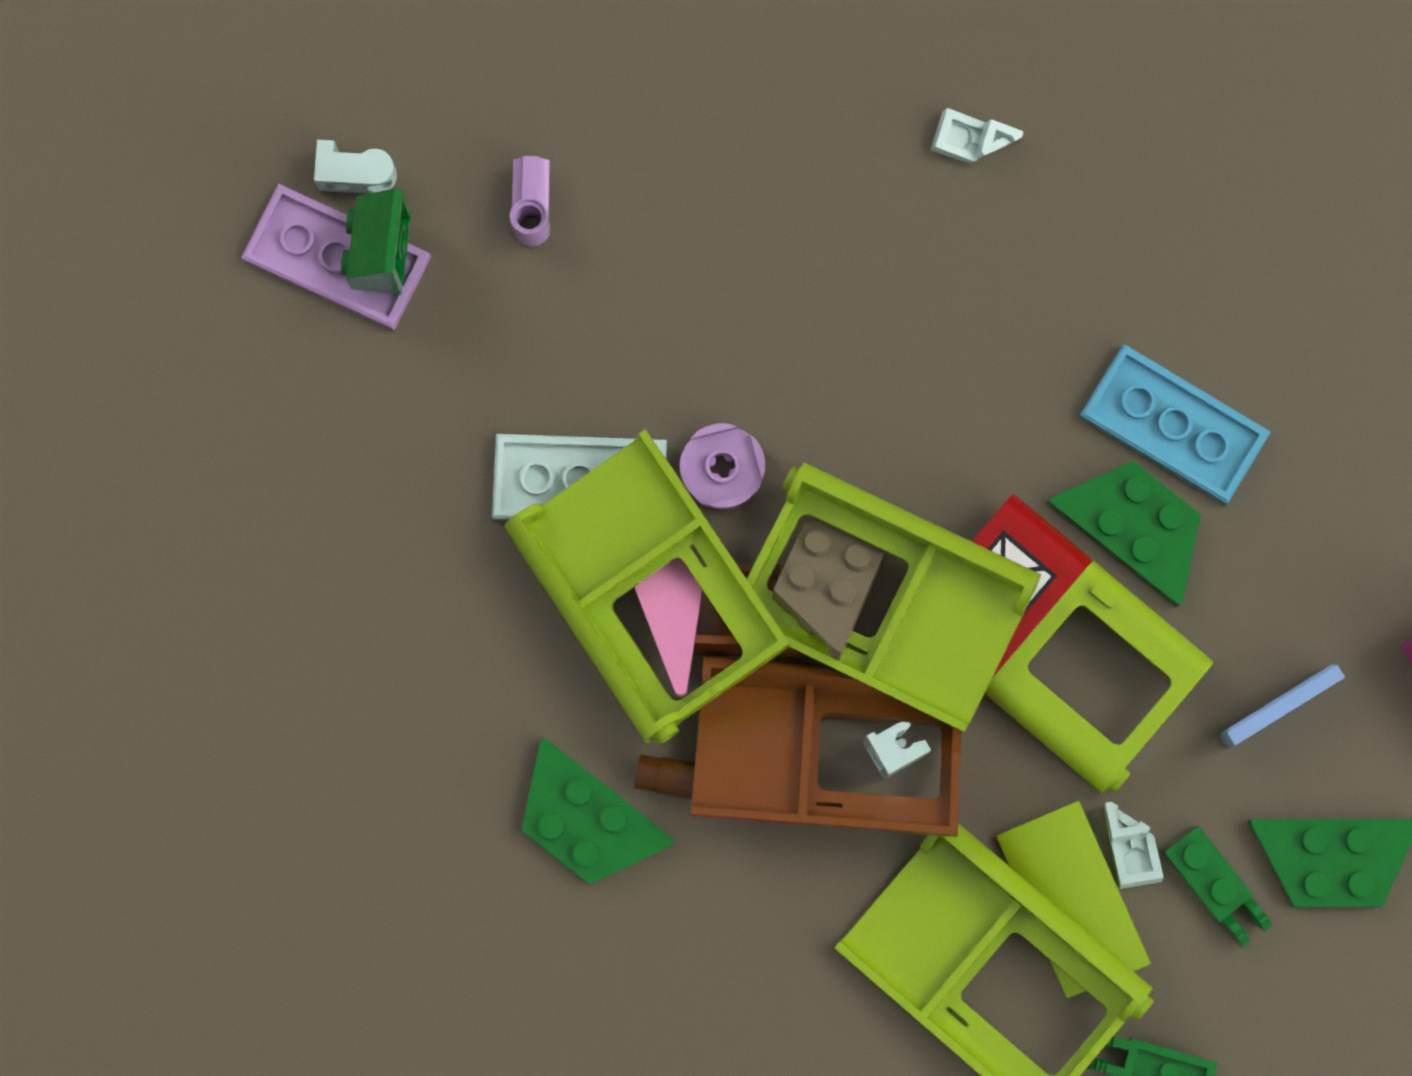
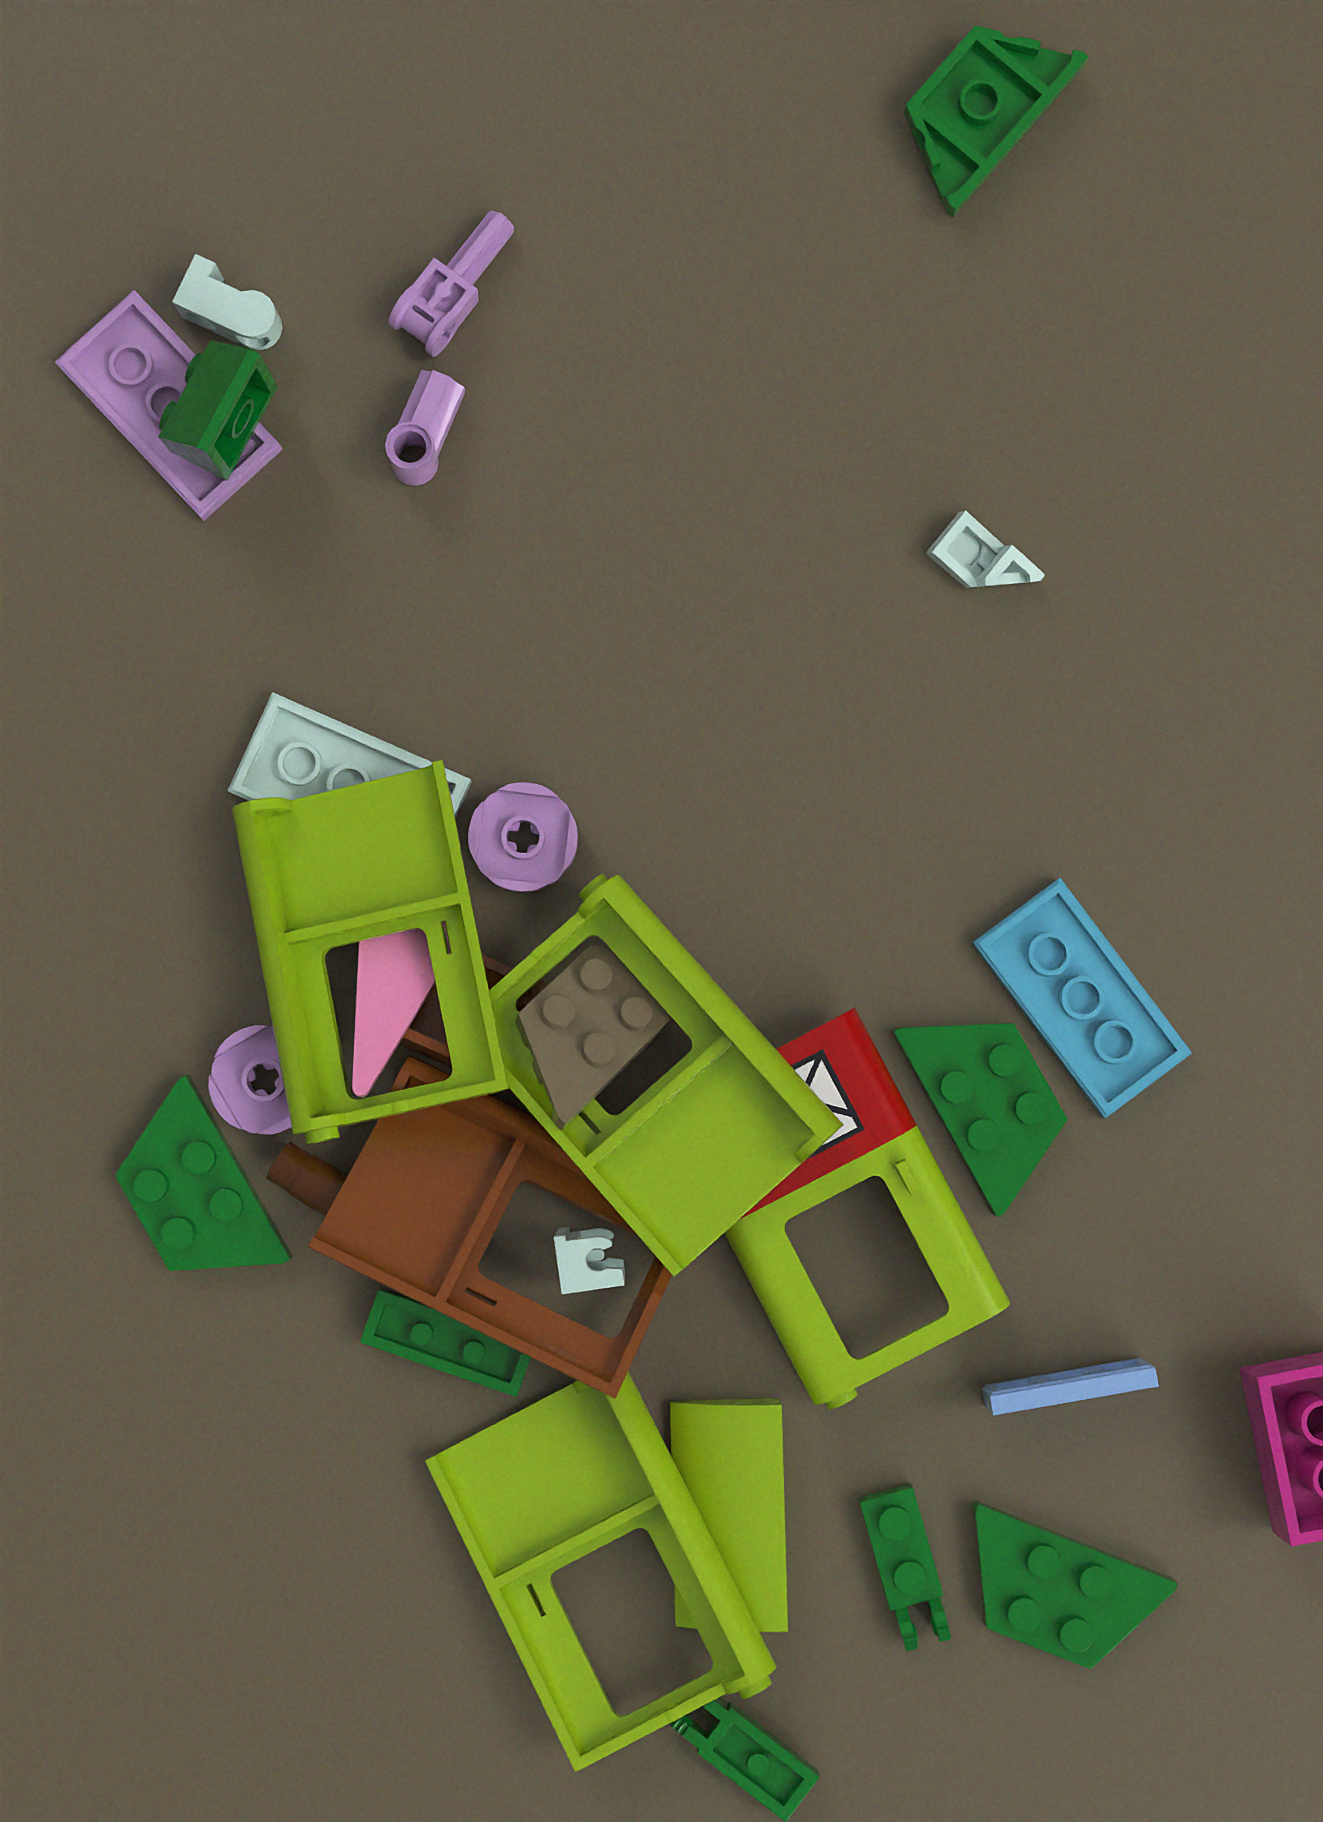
camera: 15 degrees right, 5 degrees up
(508, 97) = (446, 294): none -> lavender connector
(578, 721) = (232, 1078): none -> lavender plate
(816, 854) = (442, 1343): none -> green plate
(1132, 849) = (823, 1483): light aqua slope -> none

